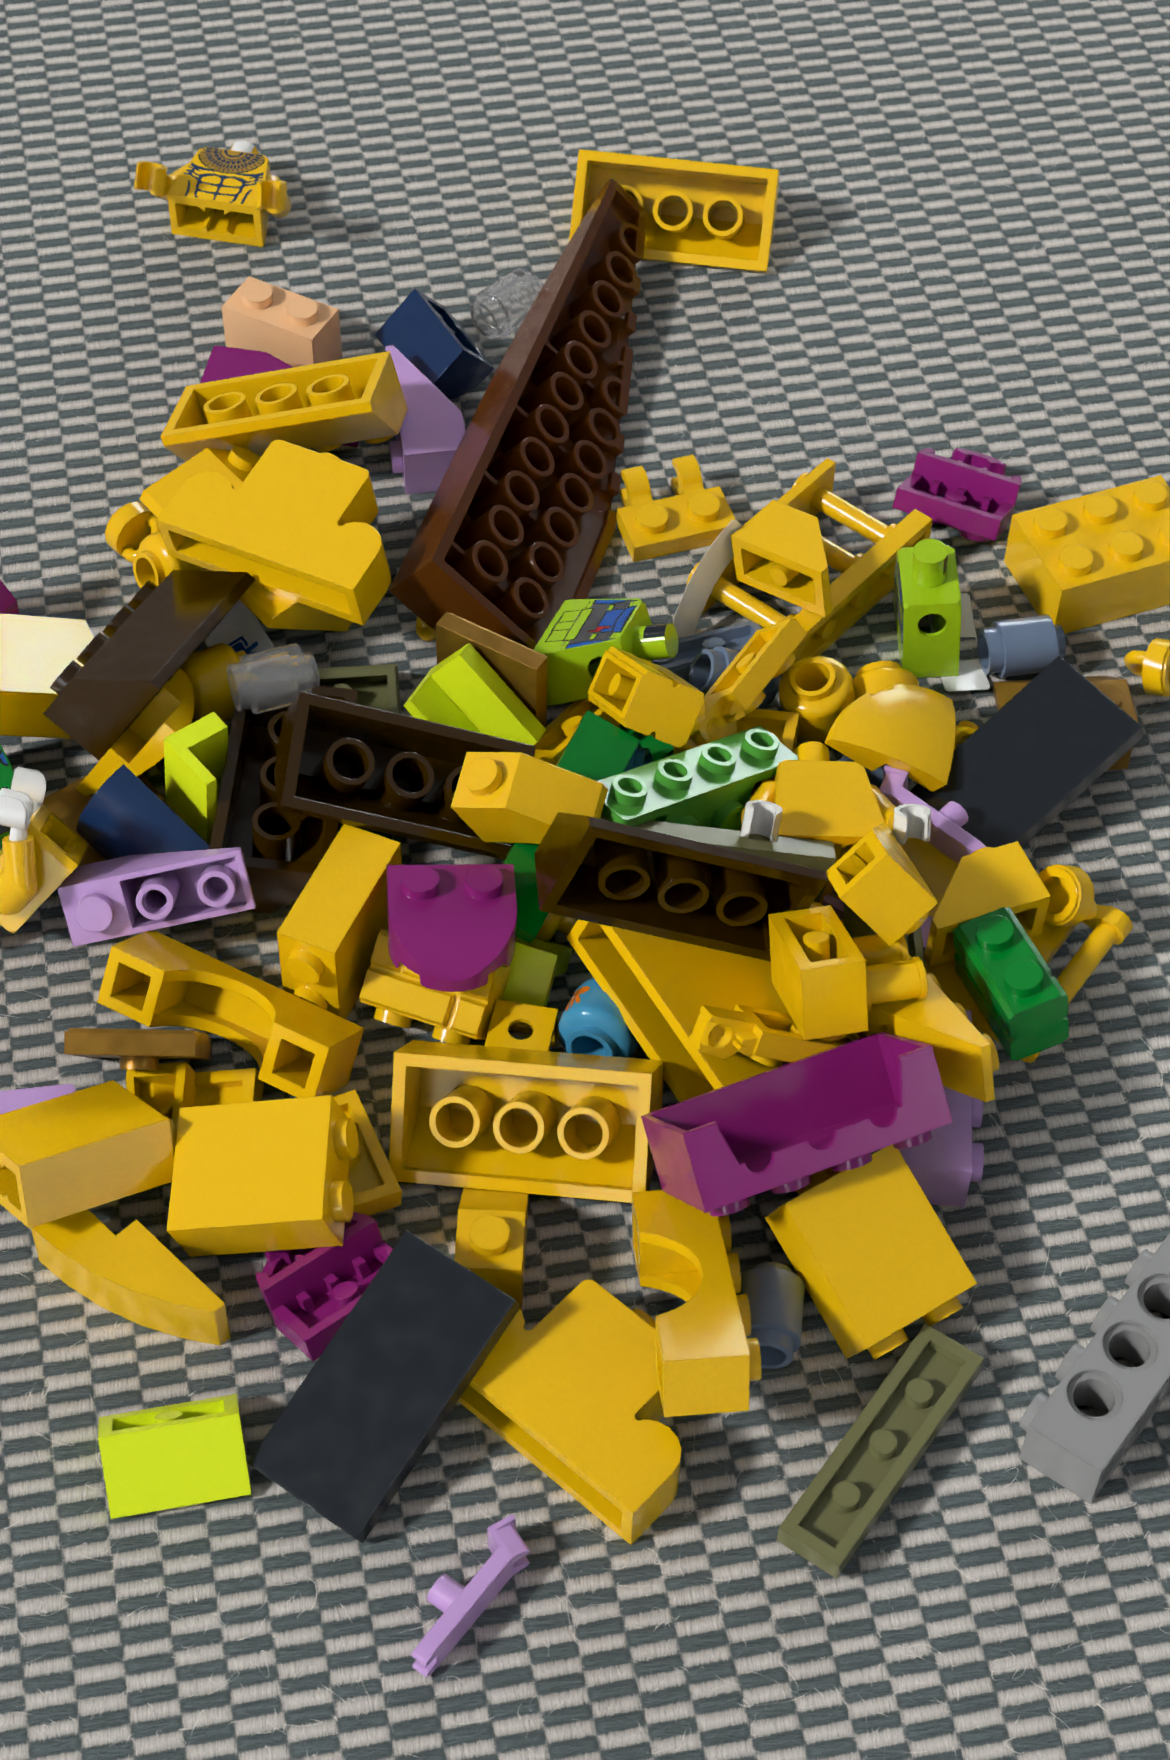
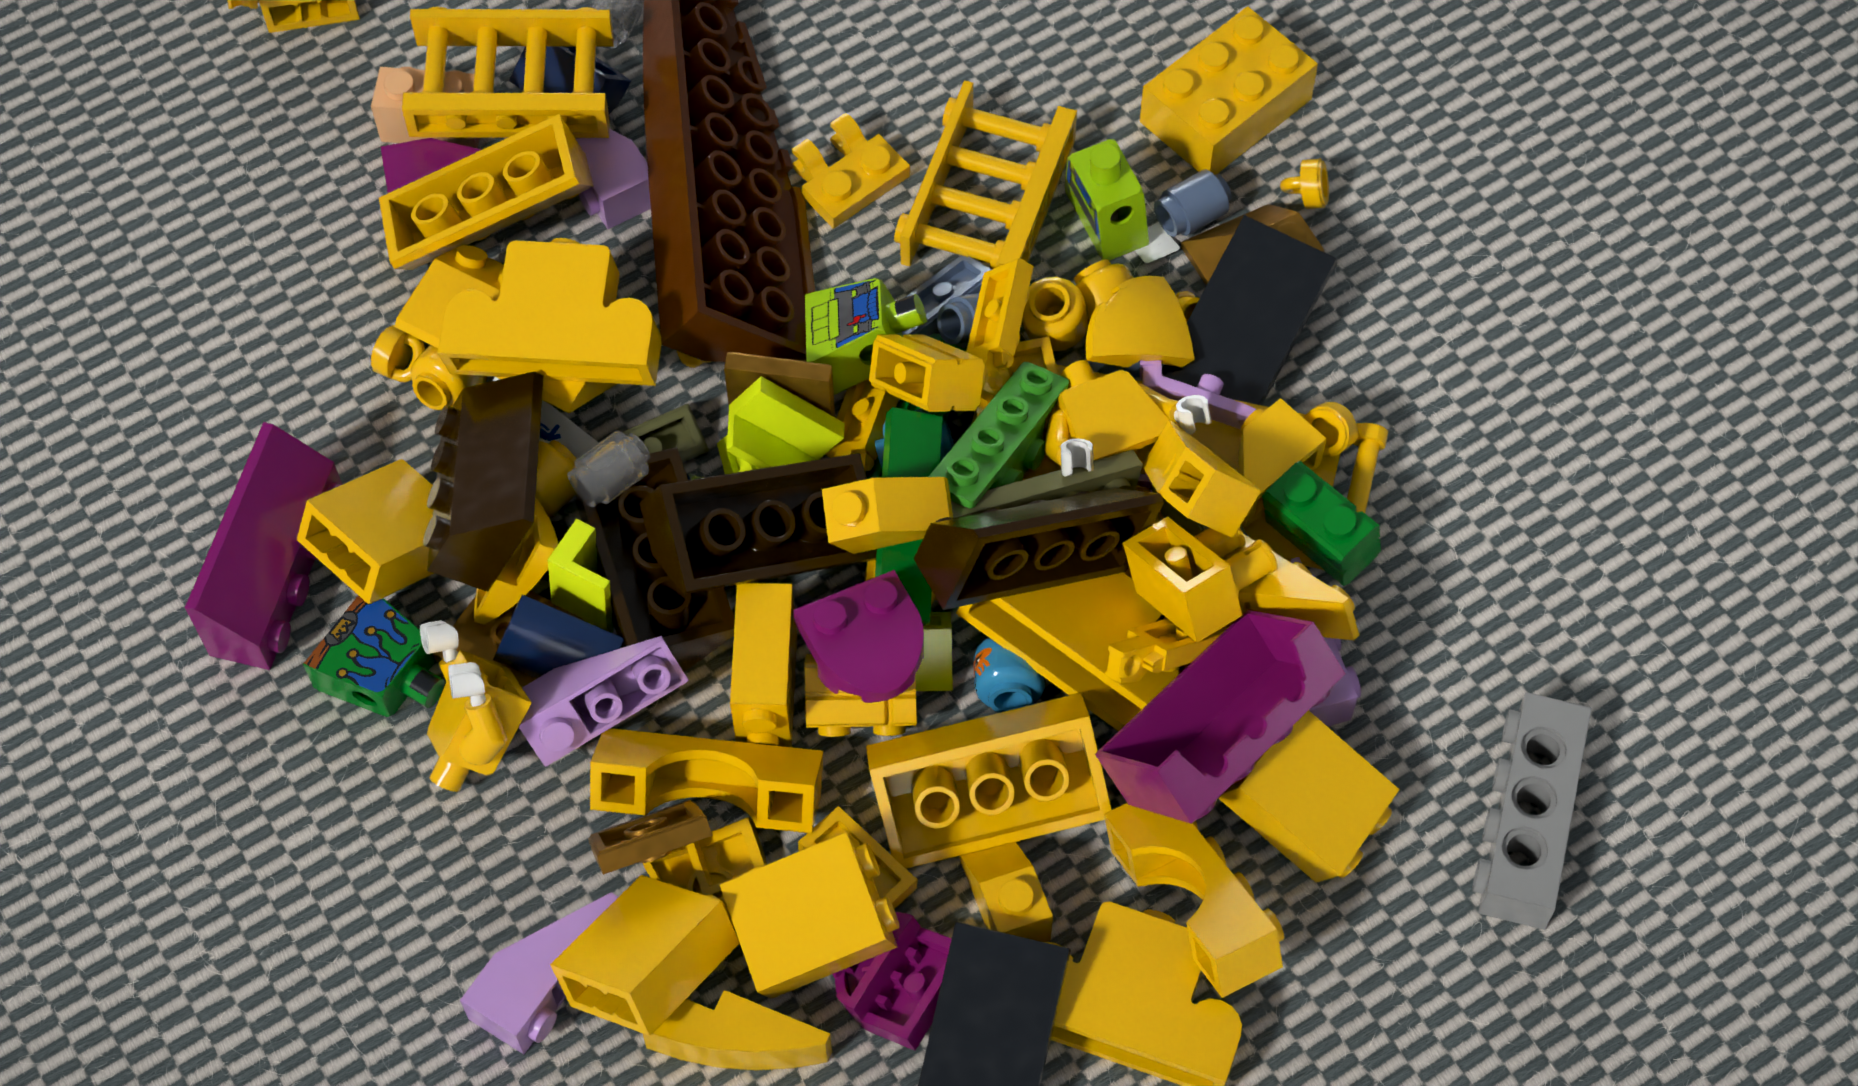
camera: 20 degrees left, 10 degrees up
(324, 337) = (506, 114): none -> yellow fence
(509, 1015) = (931, 692): yellow piece -> none
(703, 581) = (913, 235): white sticker -> none
(775, 1311) = (1253, 858): sand blue brick -> none
(784, 557) = (978, 193): yellow slope -> none
(880, 1450) = (1378, 950): olive plate -> none
(961, 492) = (1083, 71): magenta slope -> none

